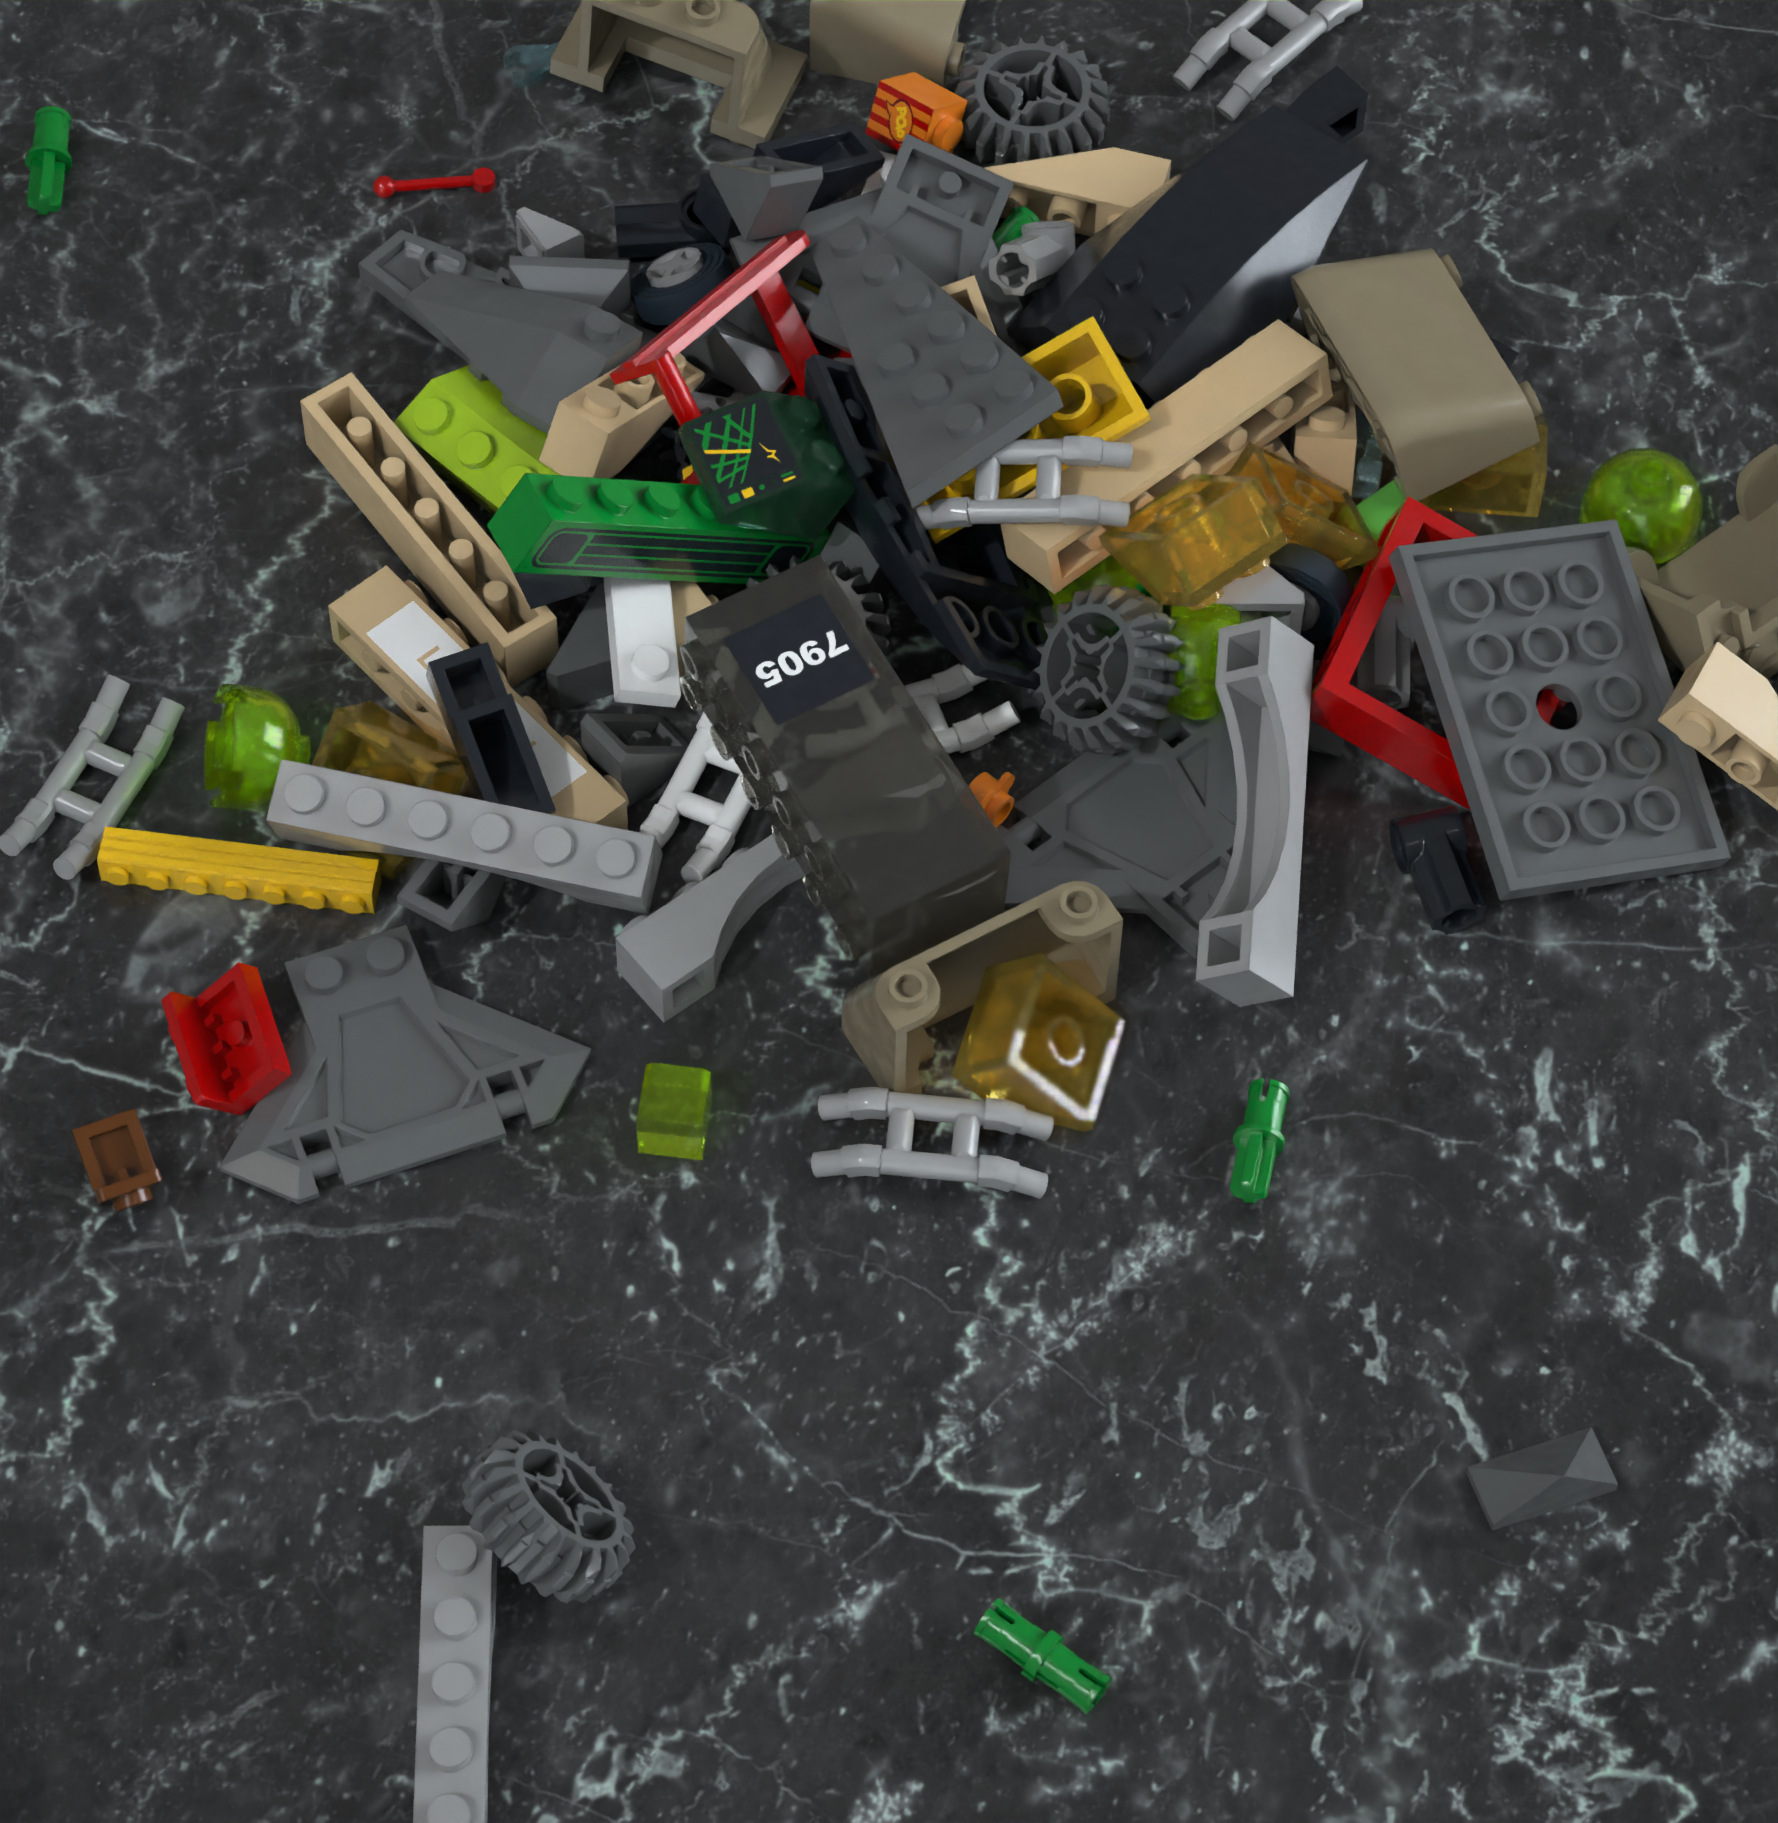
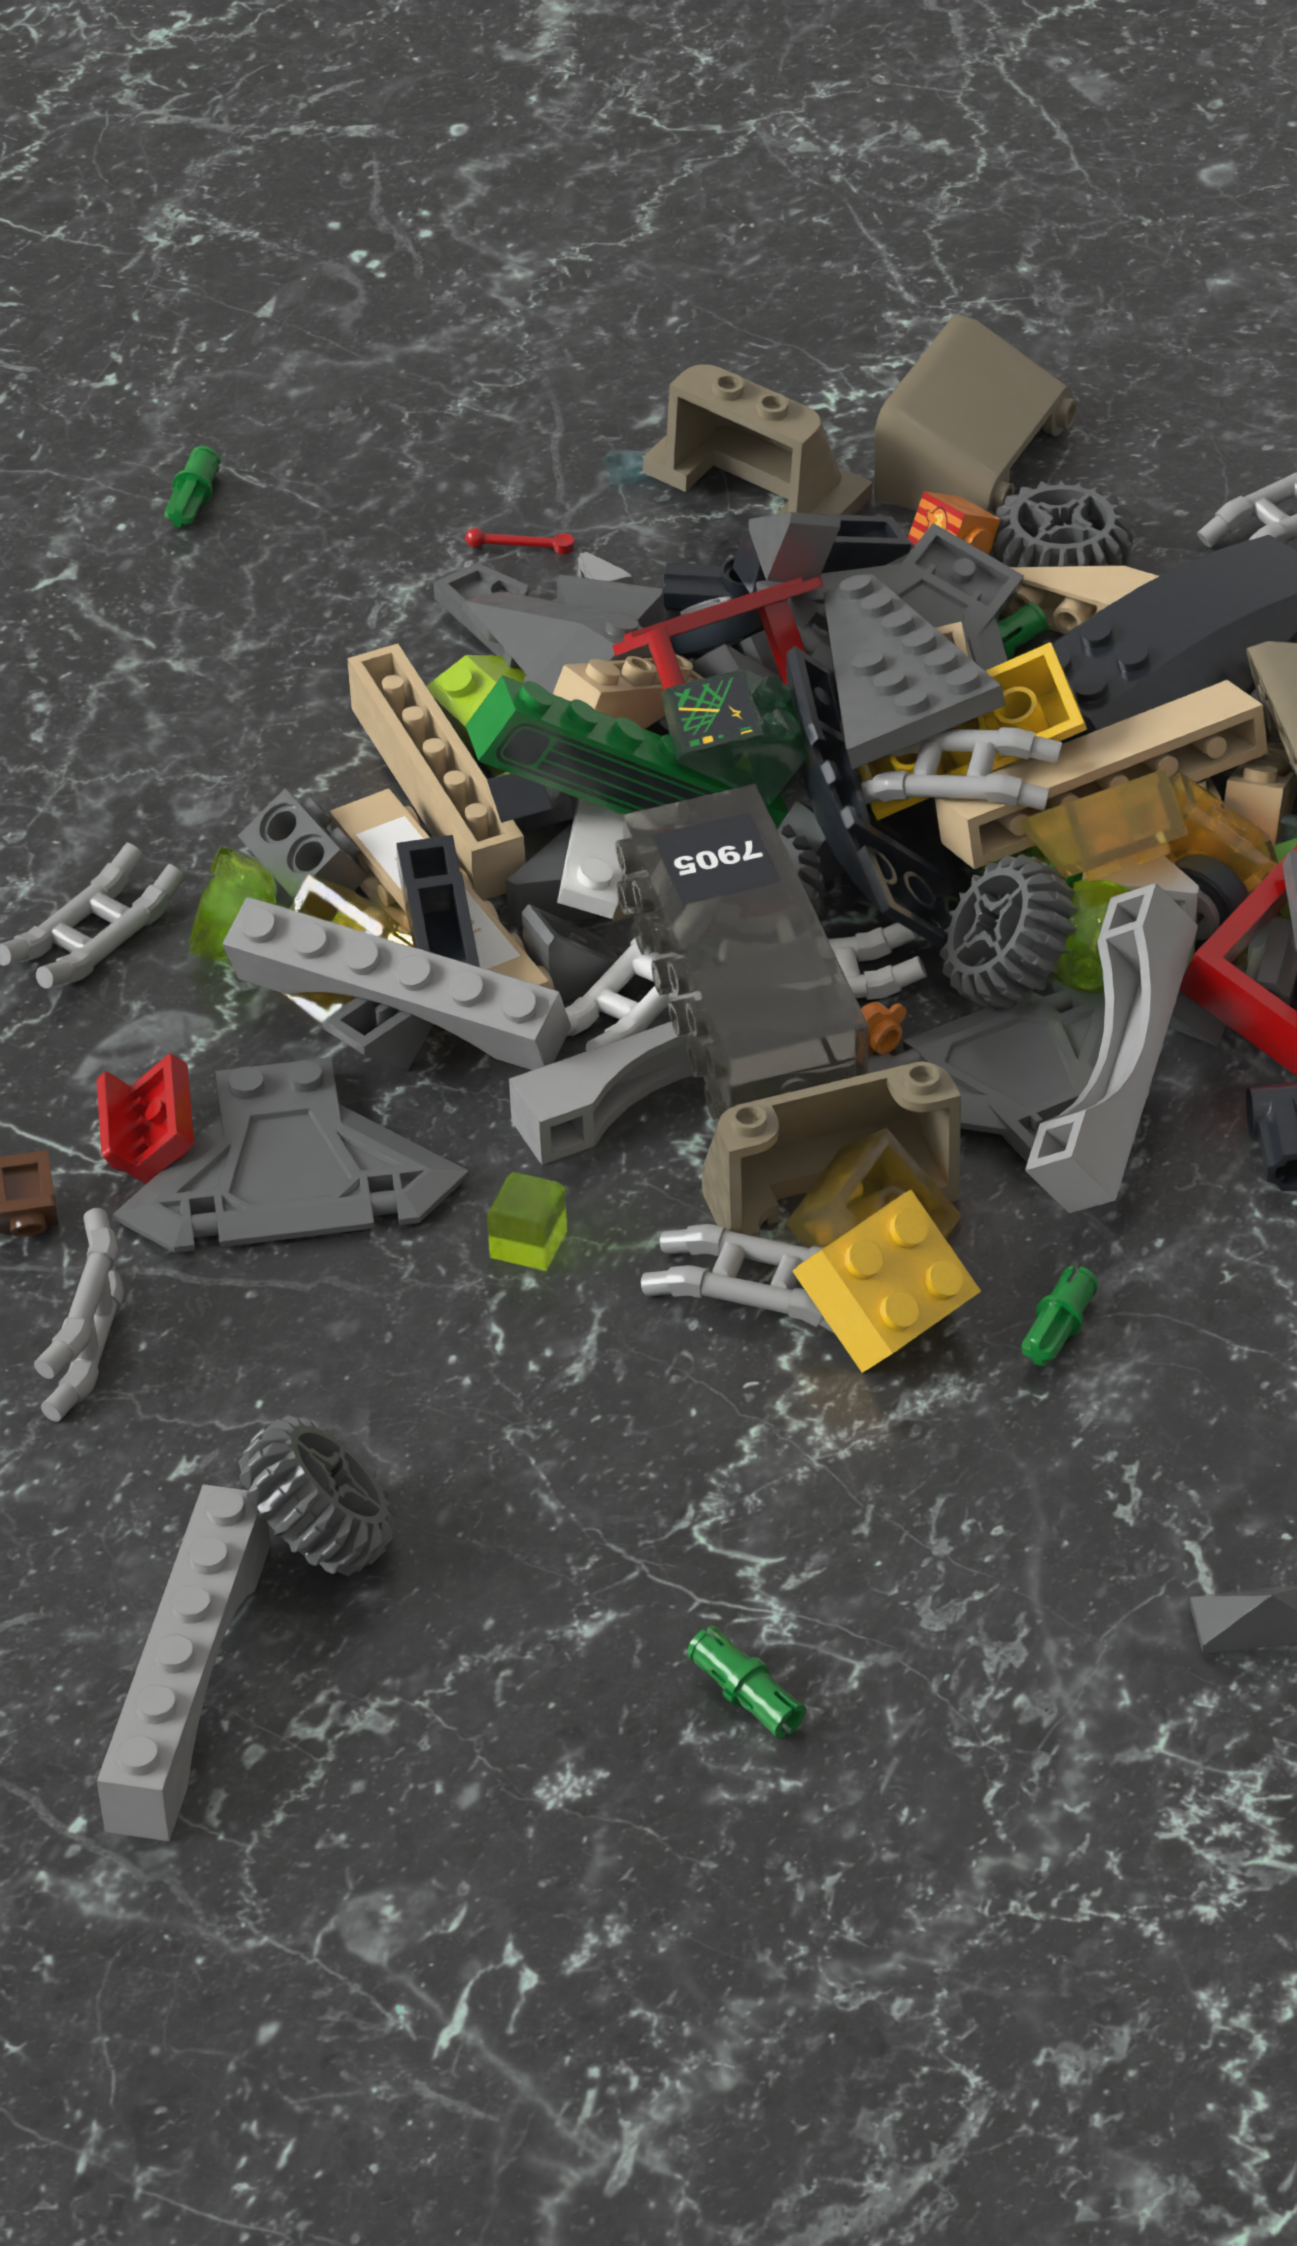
camera: 15 degrees right, 15 degrees down
(233, 1377) = (88, 1321): none -> light grey piece
(239, 870) = (198, 1001): yellow piece -> none
(307, 670) = (295, 843): none -> dark grey brick
(1034, 257) = (1018, 632): light grey piece -> none
(1080, 1141) = (886, 1281): none -> yellow brick

